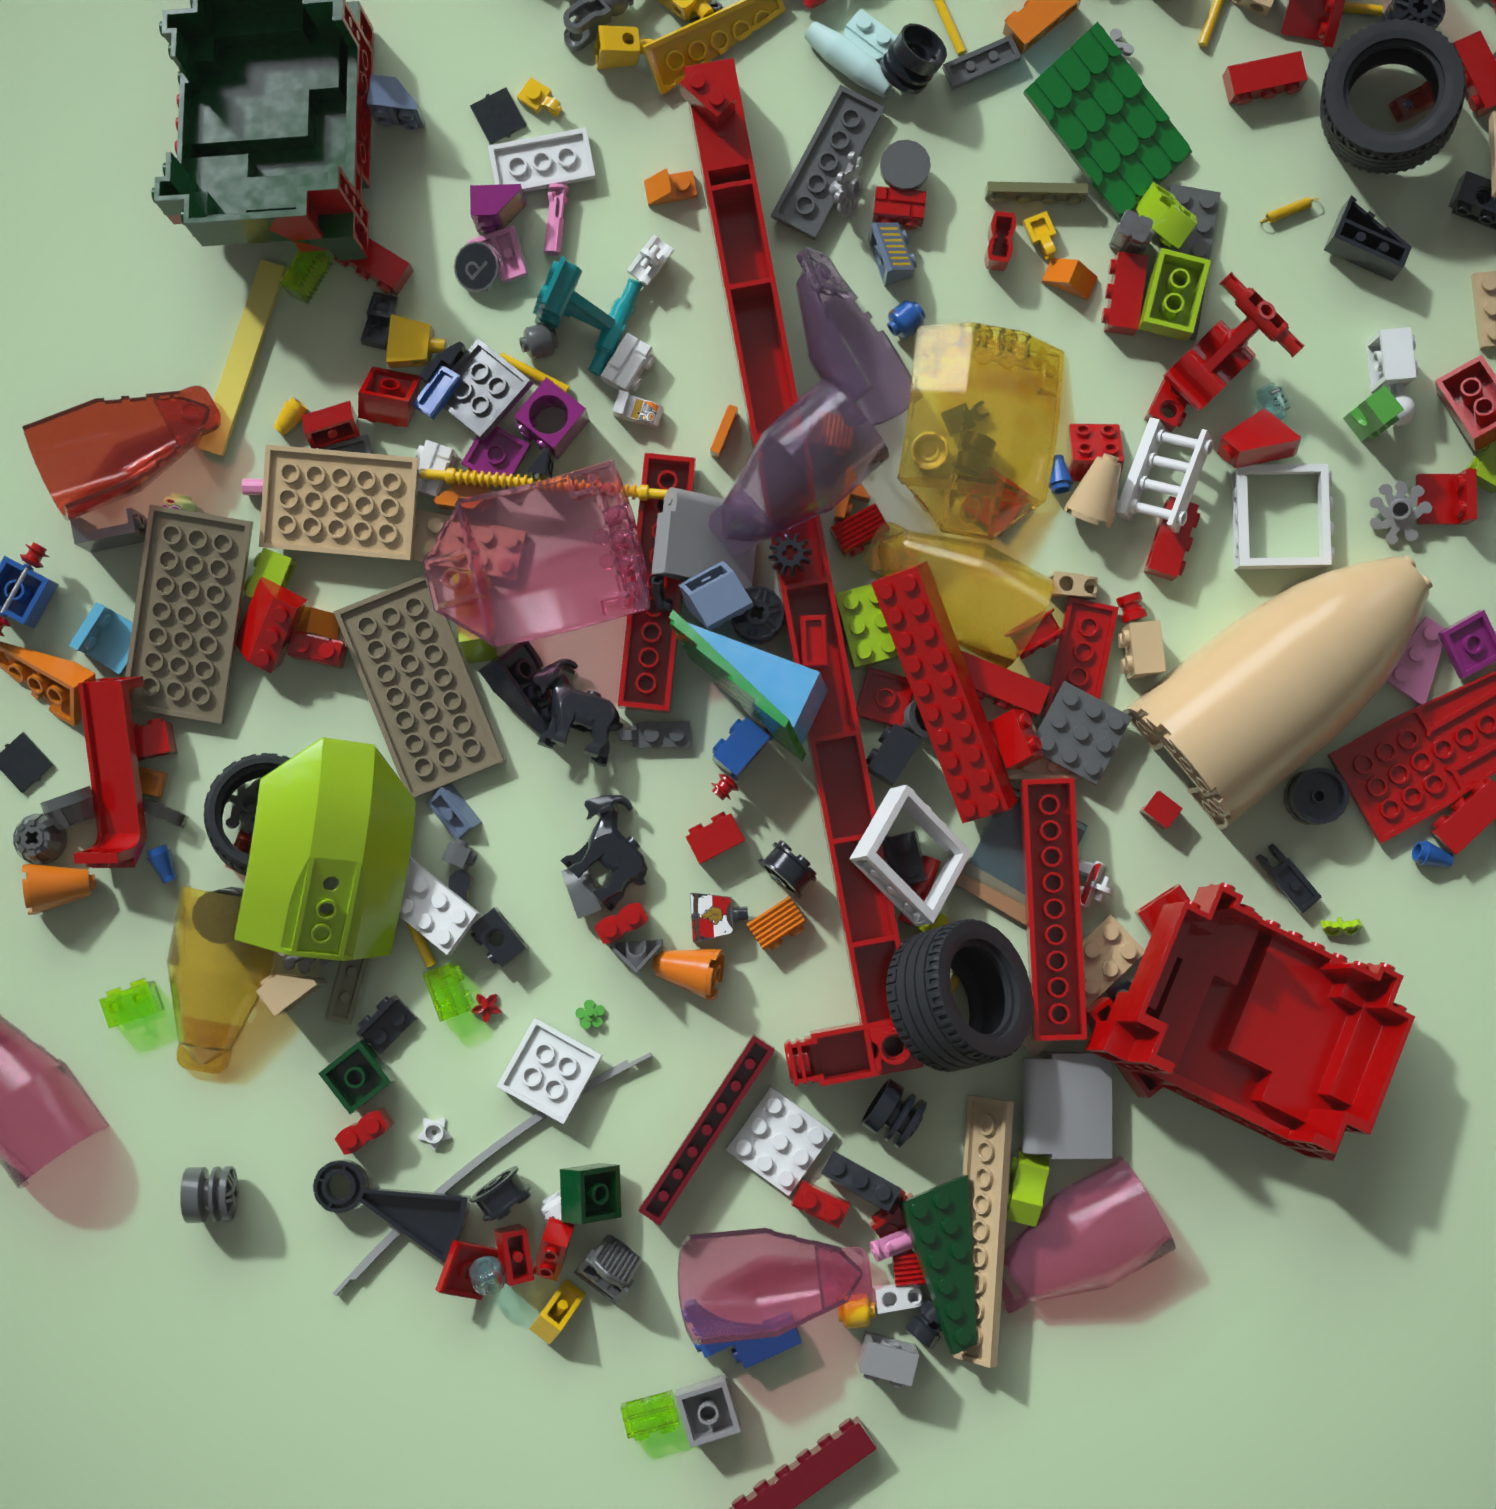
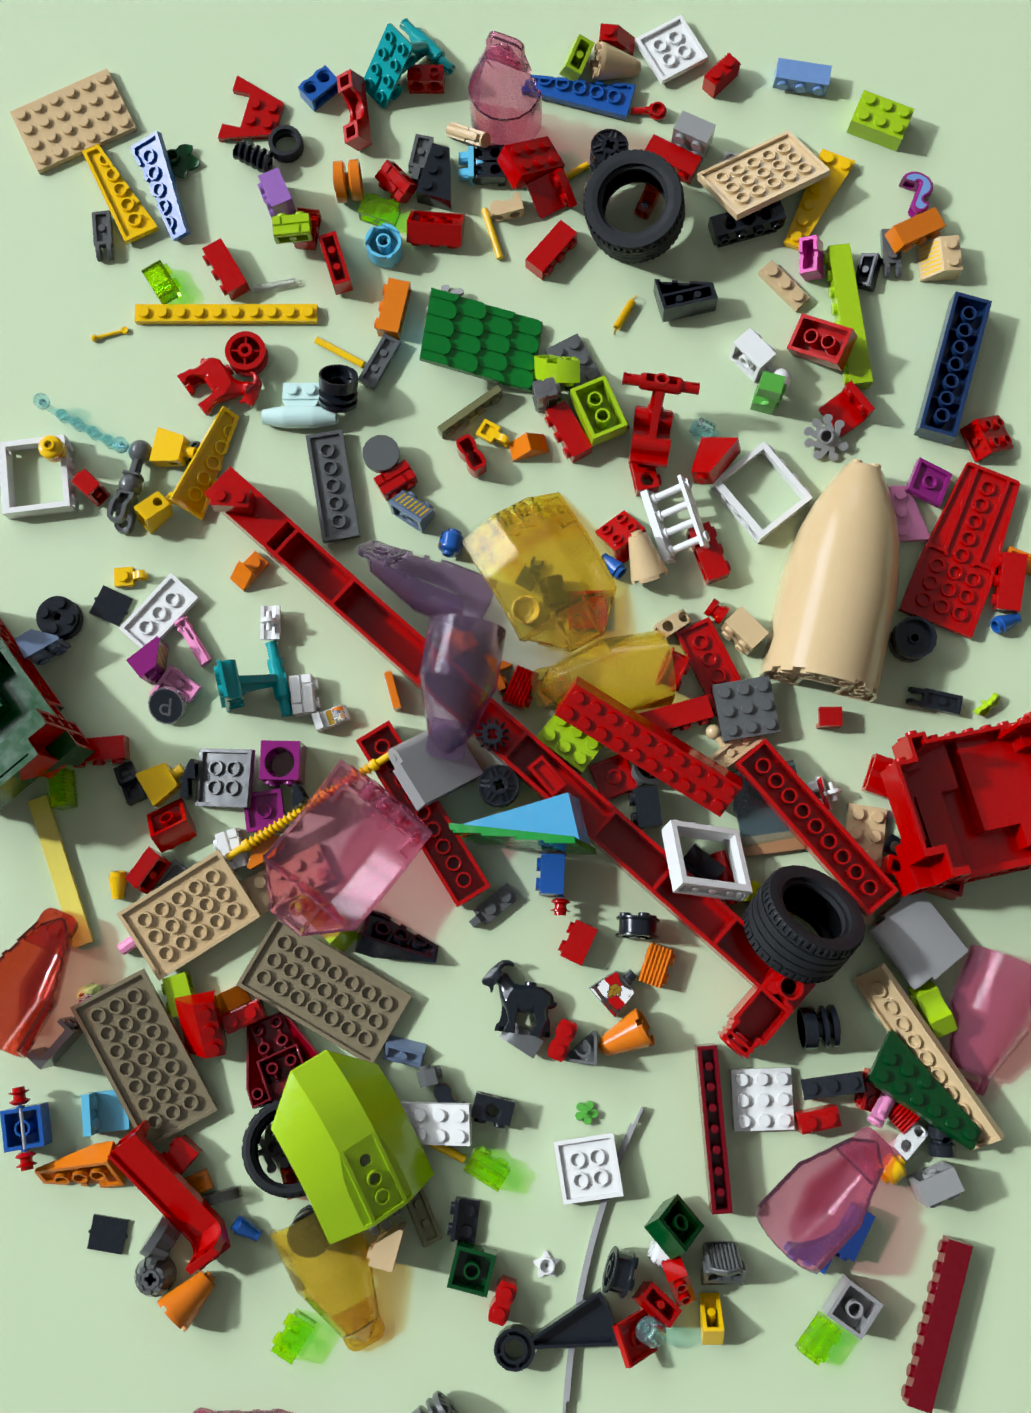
camera: 35 degrees left, 5 degrees down
(322, 704) = (272, 1052): none -> dark red wedge
(435, 87) = (59, 617): none -> black wheel
(437, 392) = (199, 800): tile -> none
(486, 1006) = (518, 1158): red plant -> none
(532, 372) = (249, 743): yellow bar -> none
(539, 341) = (239, 722): dark grey head -> none
(576, 710) = (434, 929): black animal -> none
(657, 591) = (437, 823): black arm -> none
(715, 595) = (466, 794): sand blue slope -> none
(848, 186) = (356, 490): light grey animal -> none
(1016, 739) = (712, 741): red brick -> none

